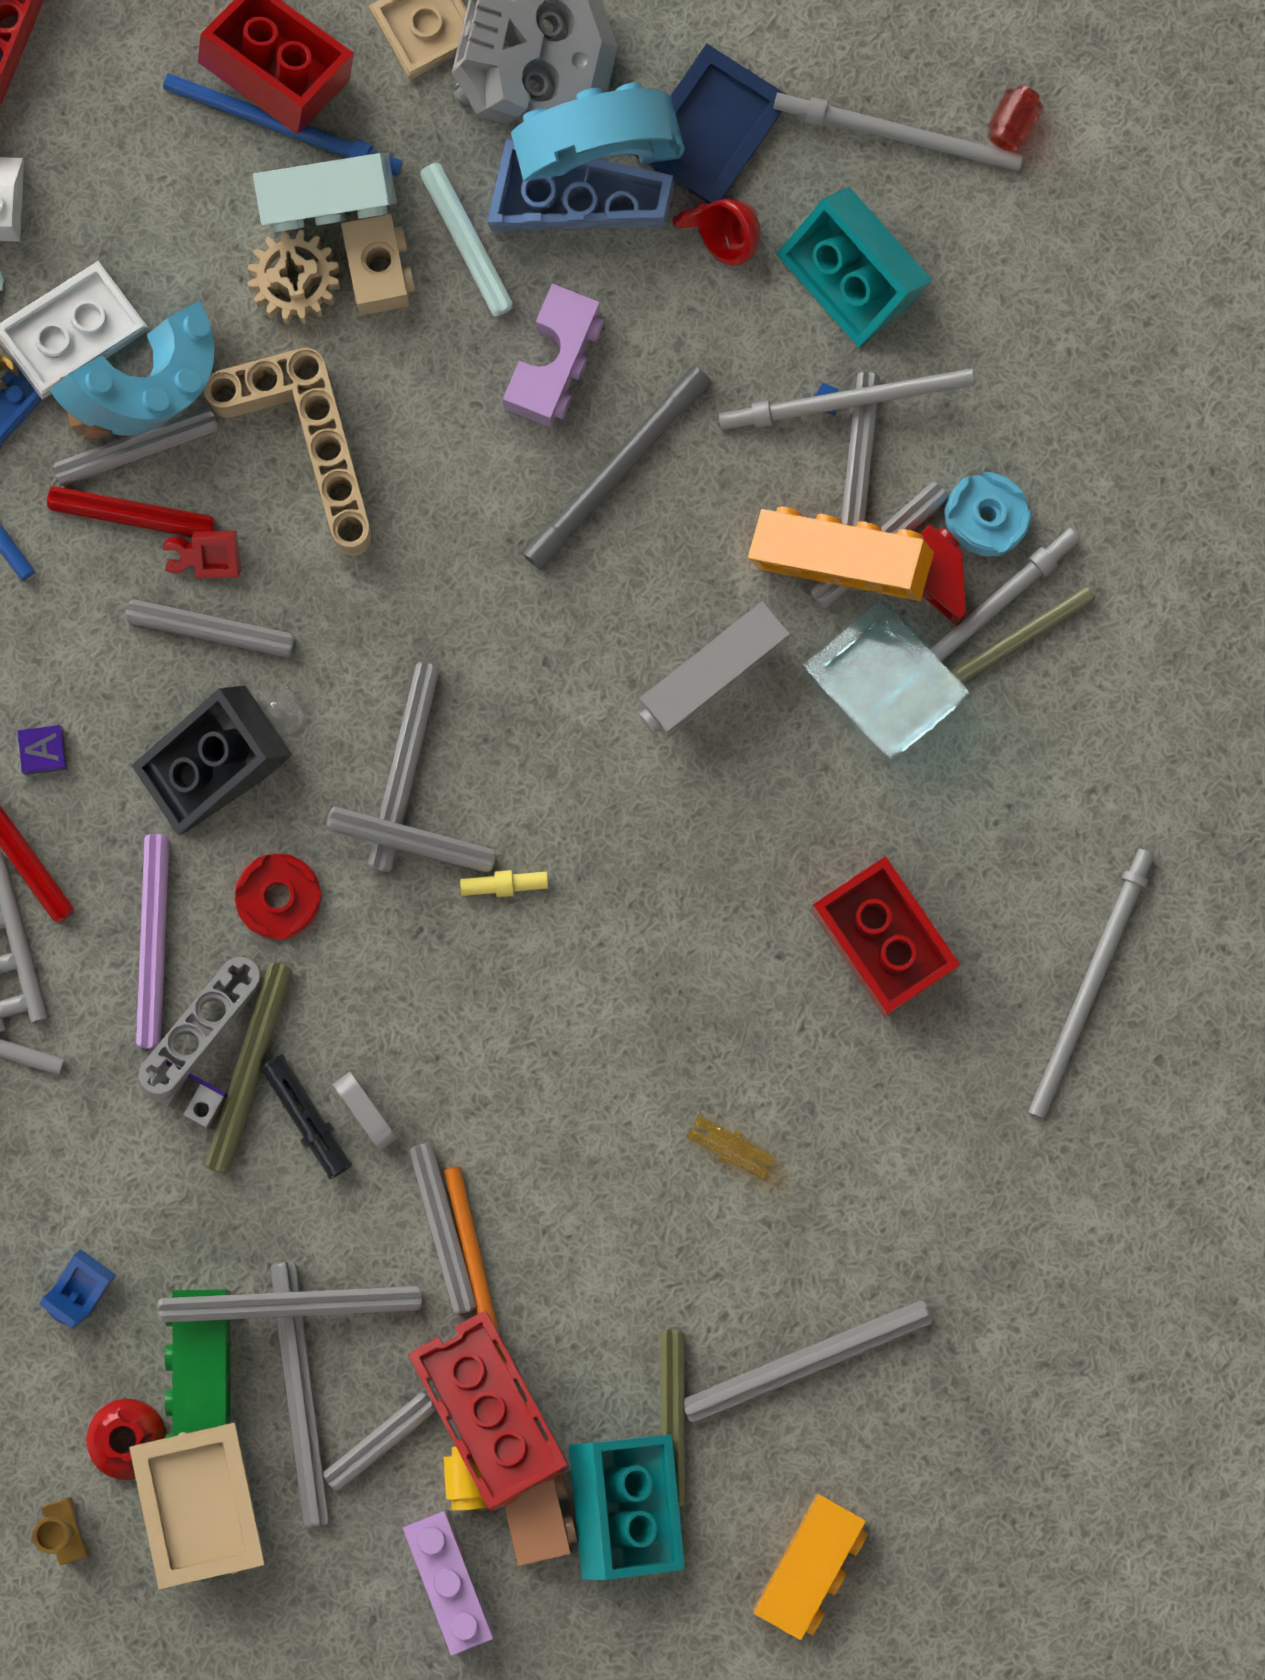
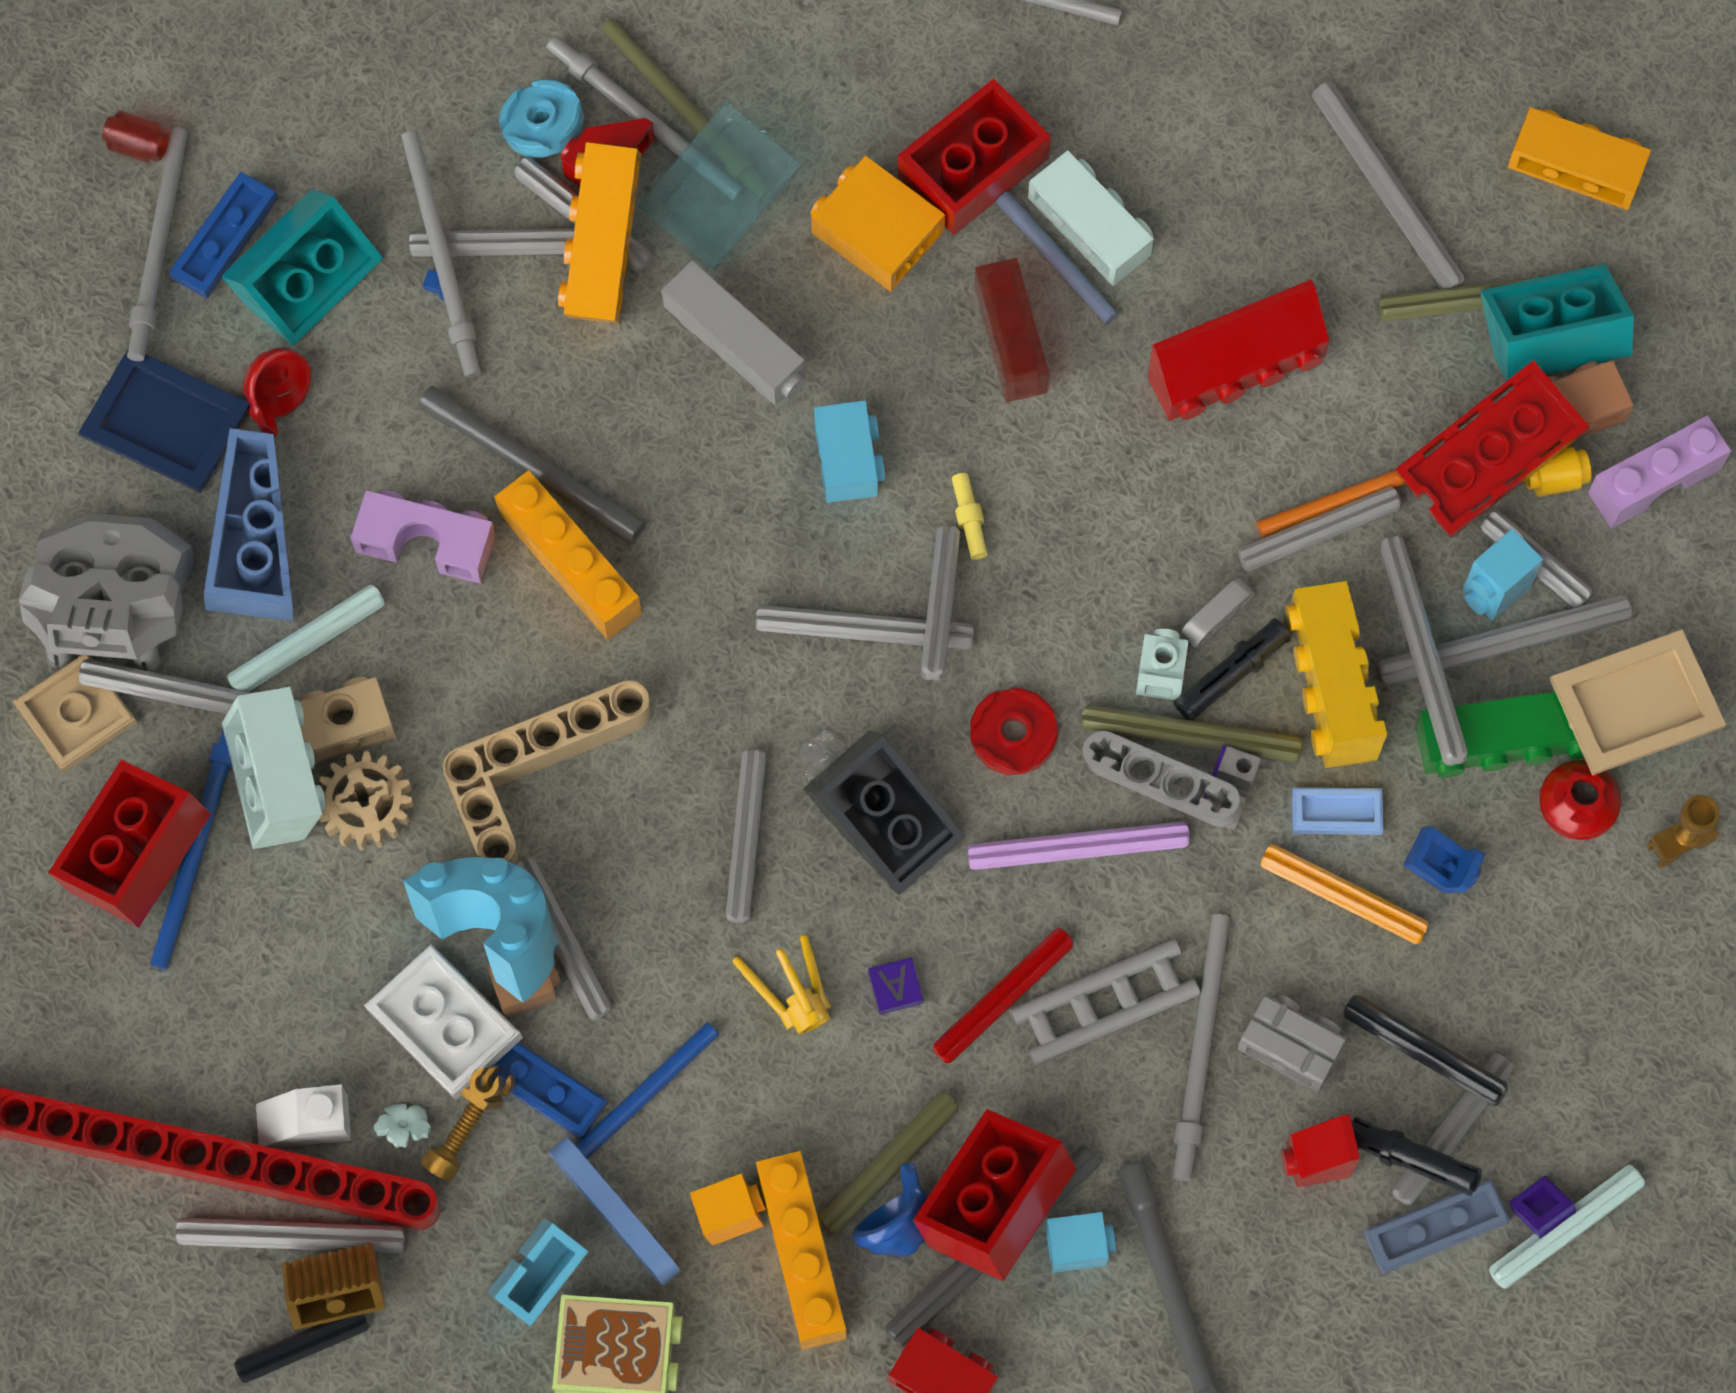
camera: 100 degrees left, 10 degrees down
(31, 658) = (805, 1009): none -> yellow plant
(65, 1189) = (1344, 894): none -> light orange axle
(128, 512) = (633, 933): red axle -> none
(150, 1197) = (1337, 811): none -> light blue tile
(210, 552) = (671, 842): red plate -> none
(280, 1214) = (1335, 675): none -> yellow wedge
(301, 1048) = (1157, 678): none -> light aqua brick
(352, 1394) = (1501, 575): none -> medium azure brick
(430, 109) = (157, 686): none -> light grey axle
(512, 489) = (568, 555): none -> light orange brick
(584, 771) = (846, 451): none -> medium azure piece
(598, 127) = (197, 500): medium azure brick -> none
(631, 1173) = (1239, 352): none -> red slope
(691, 949) = (1011, 330): none -> clear red brick
(731, 1147) = (1195, 277): clear yellow pin -> none
(772, 1010) = (1057, 257): none -> sand blue bar
(807, 1050) = (1091, 217): none -> light aqua brick
(828, 831) = (877, 222): none -> light orange brick
(899, 195) = (223, 235): none -> blue plate

